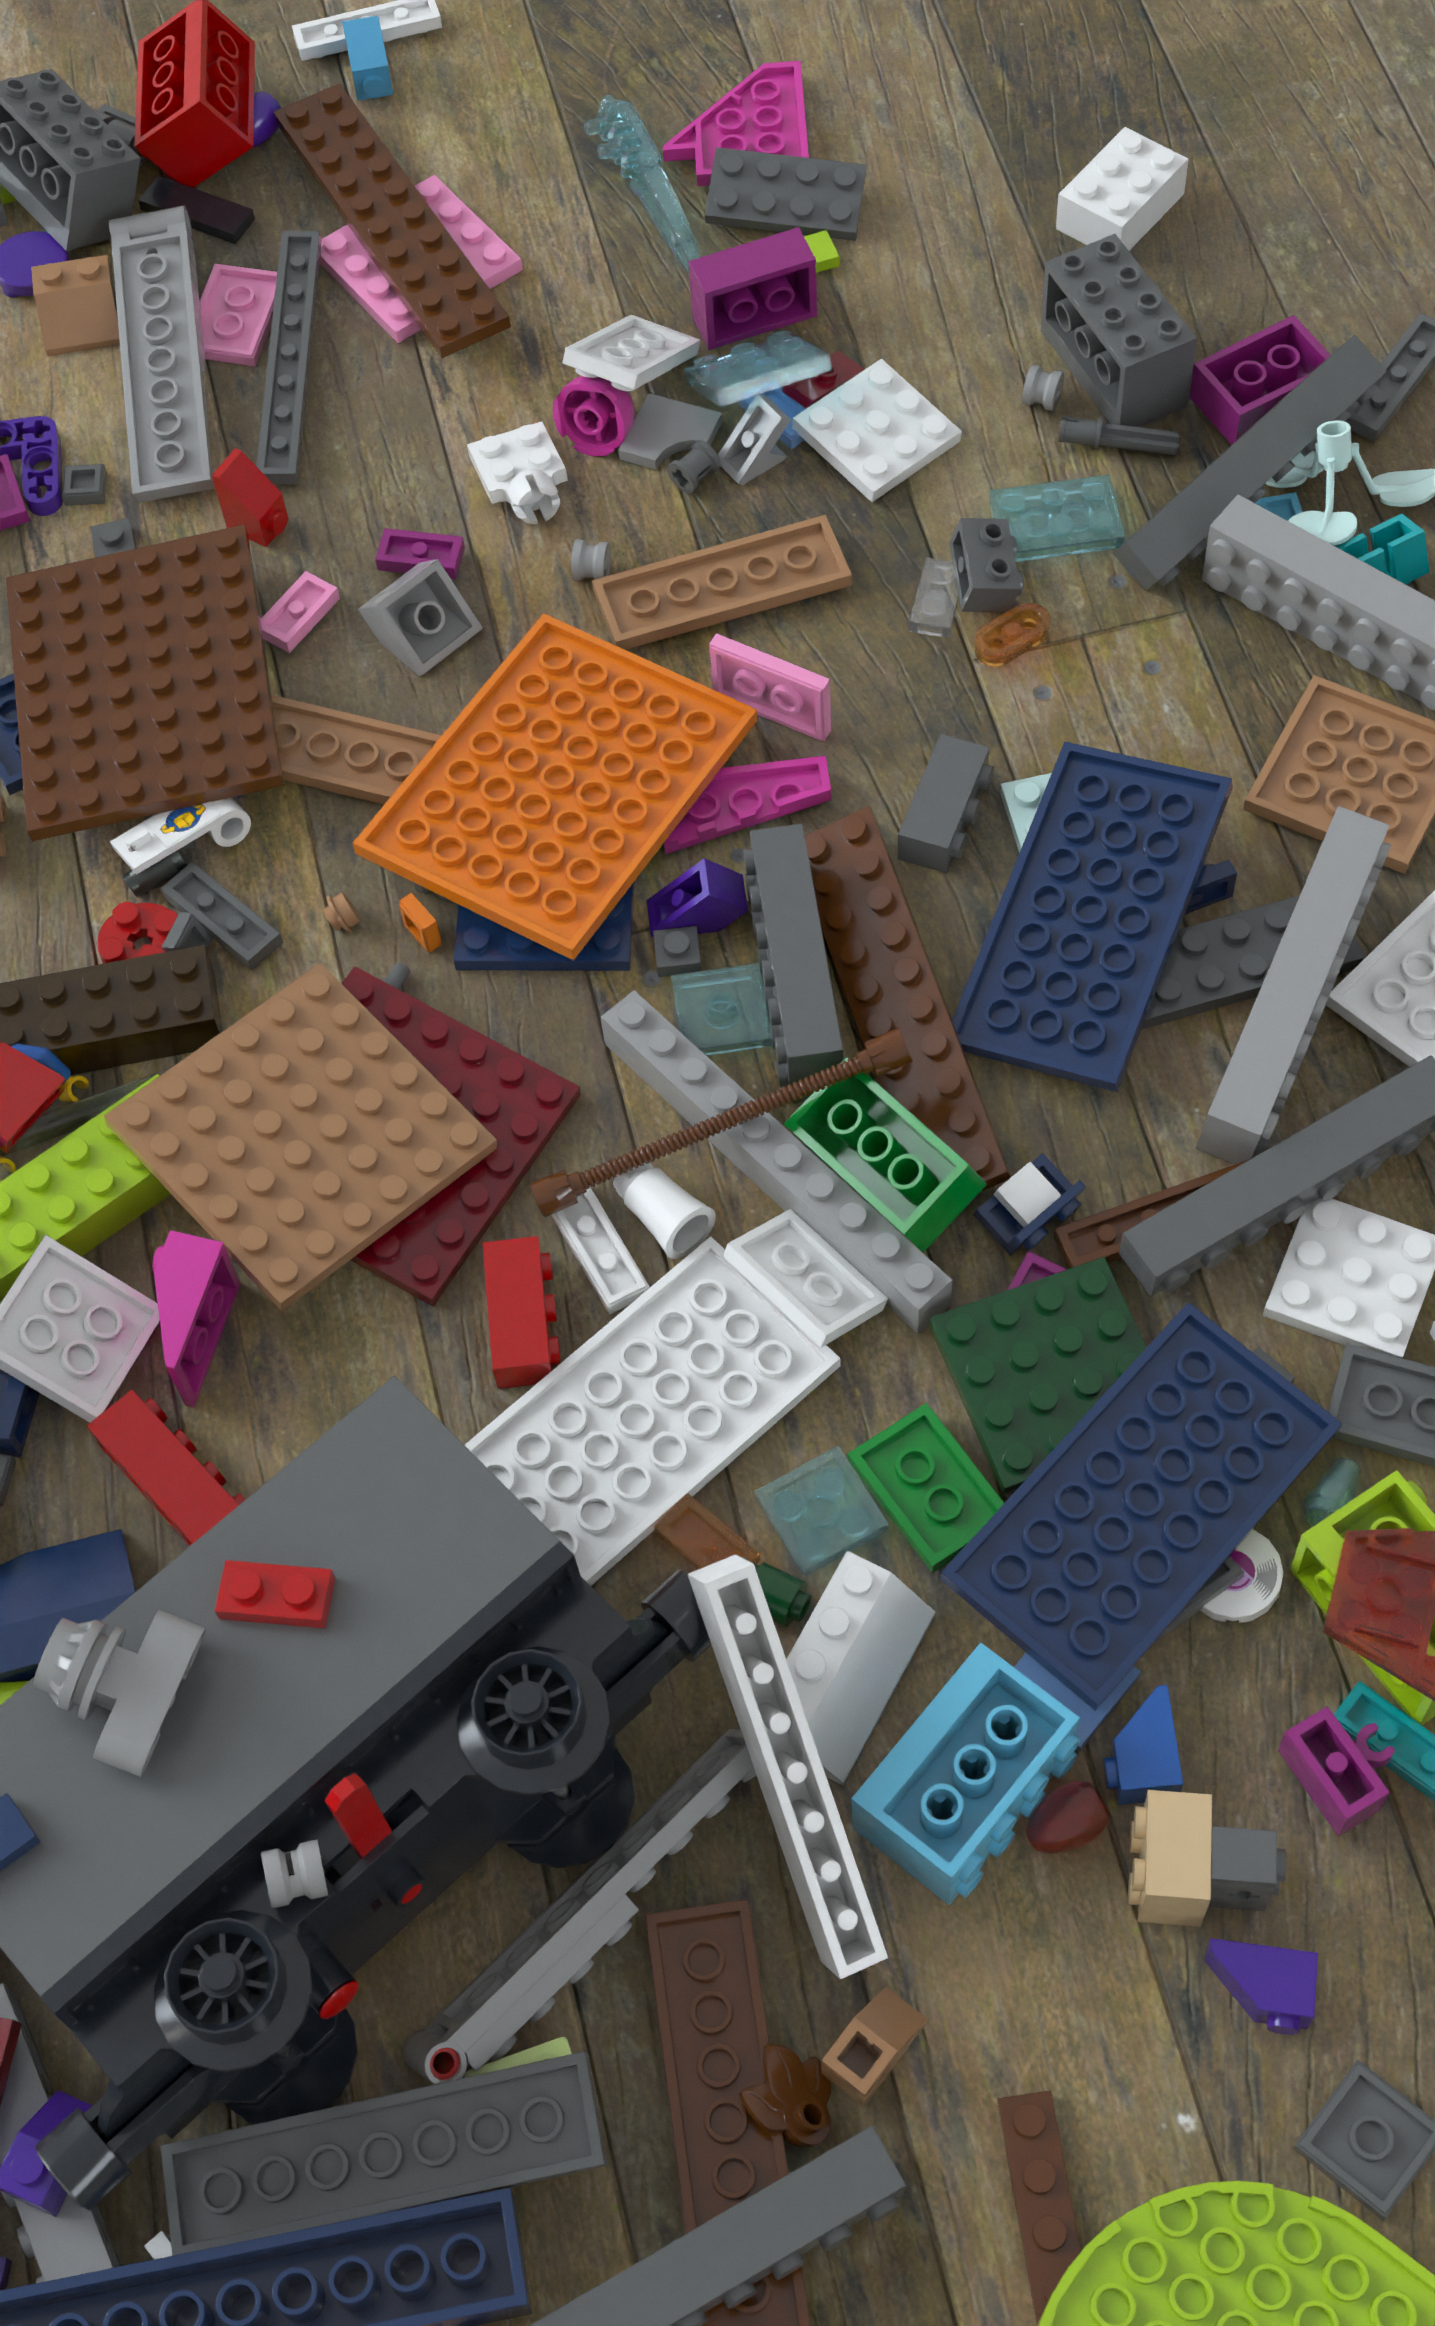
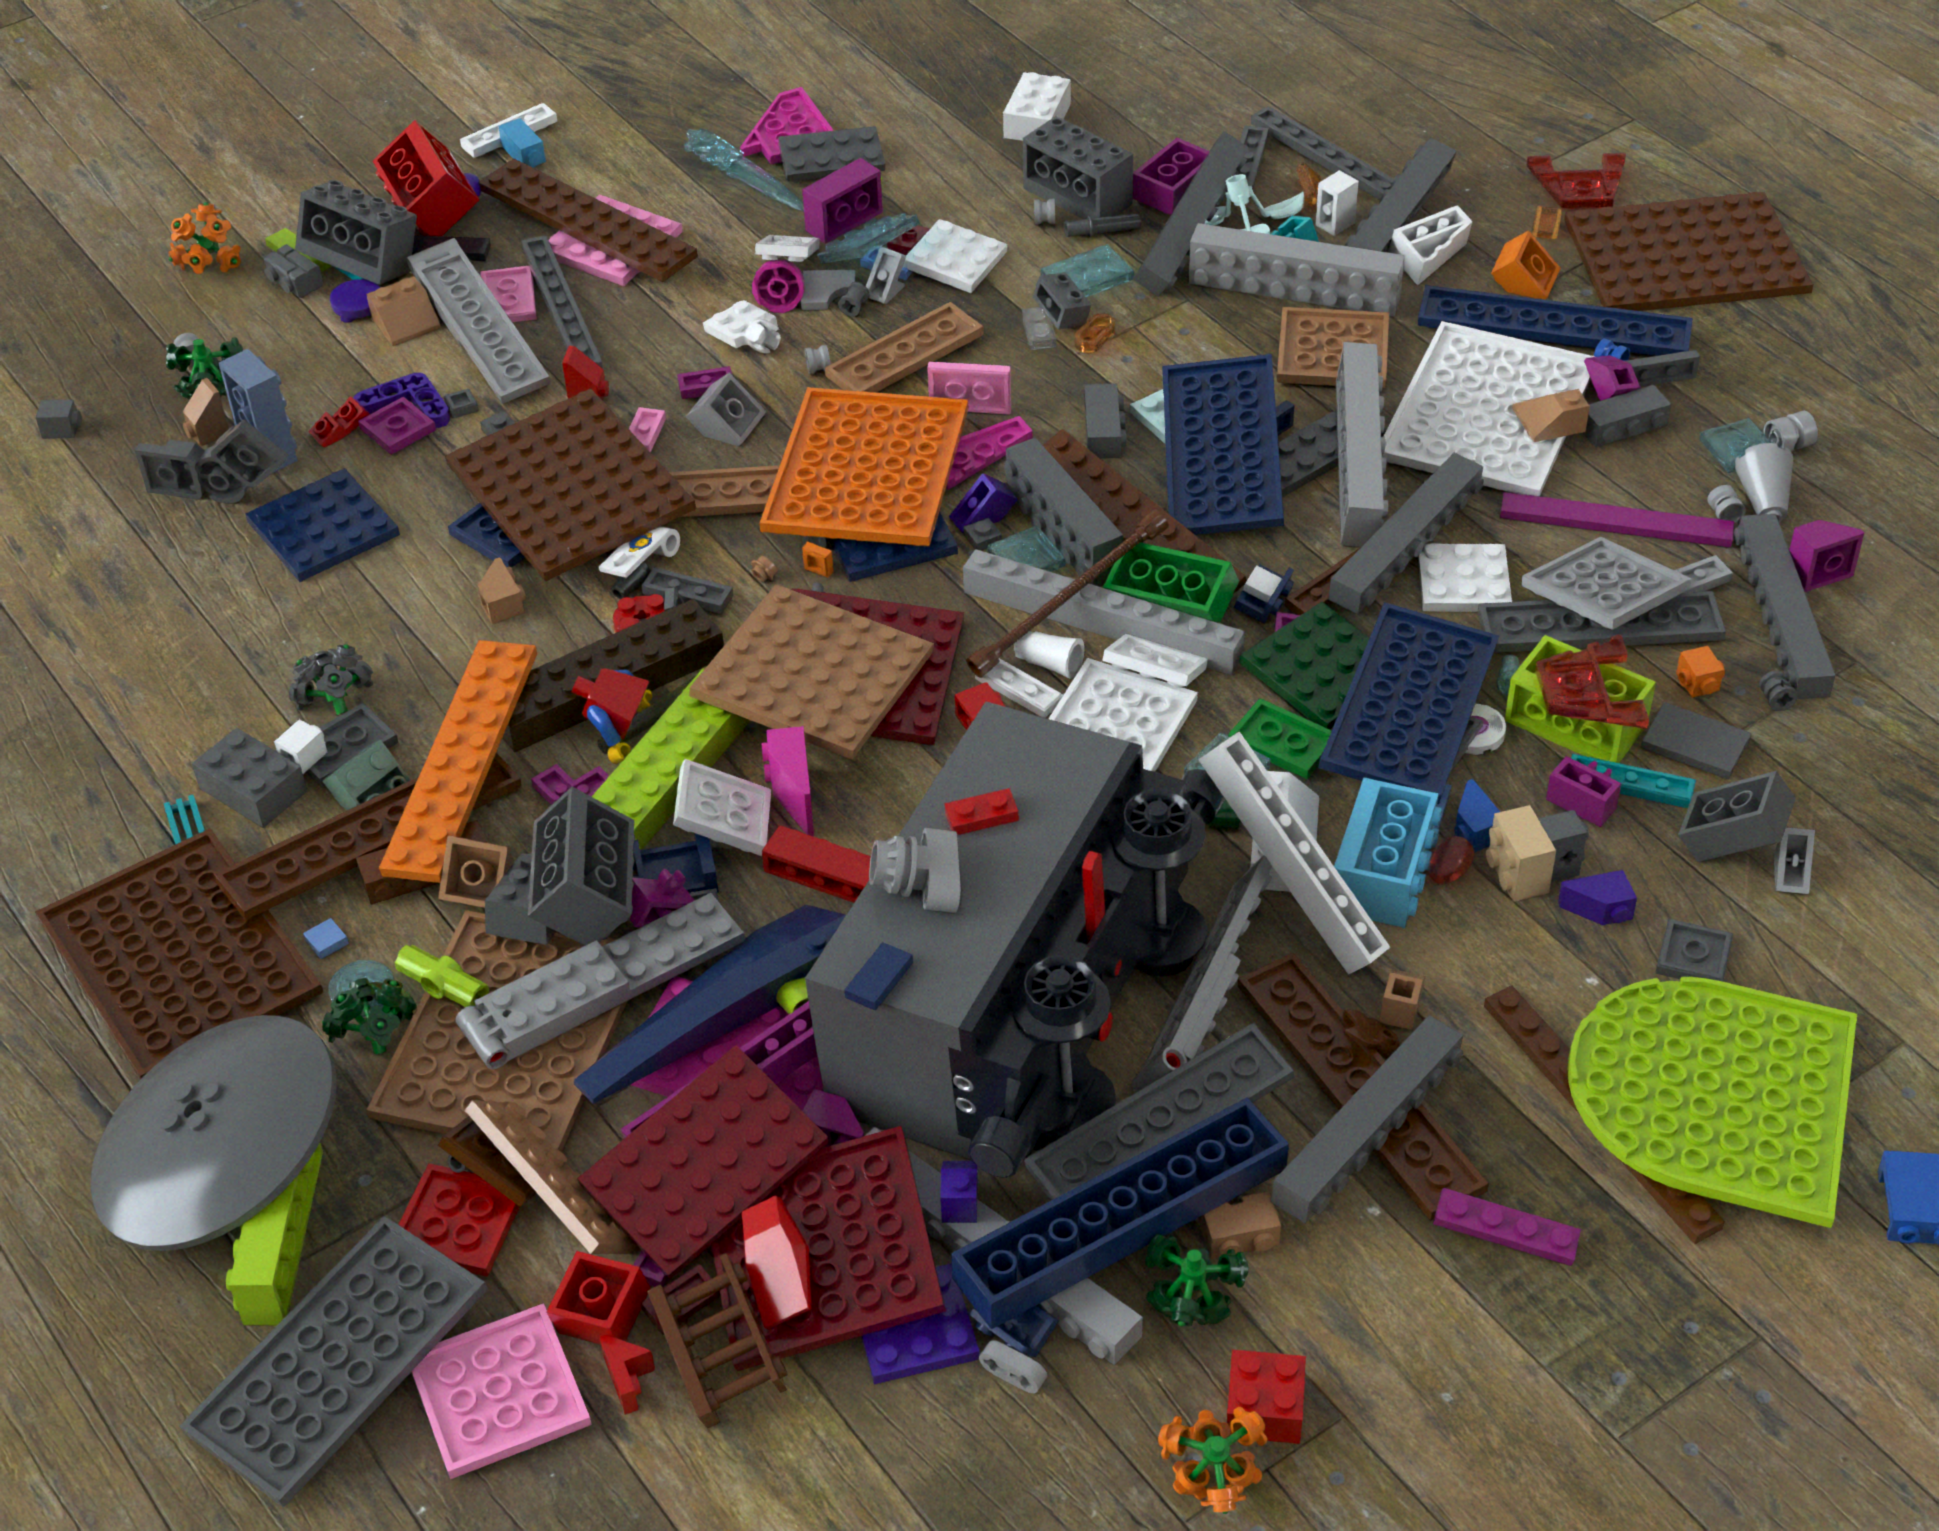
camera: 25 degrees left, 15 degrees down
(307, 1870) = (1070, 934): light grey wheel -> none

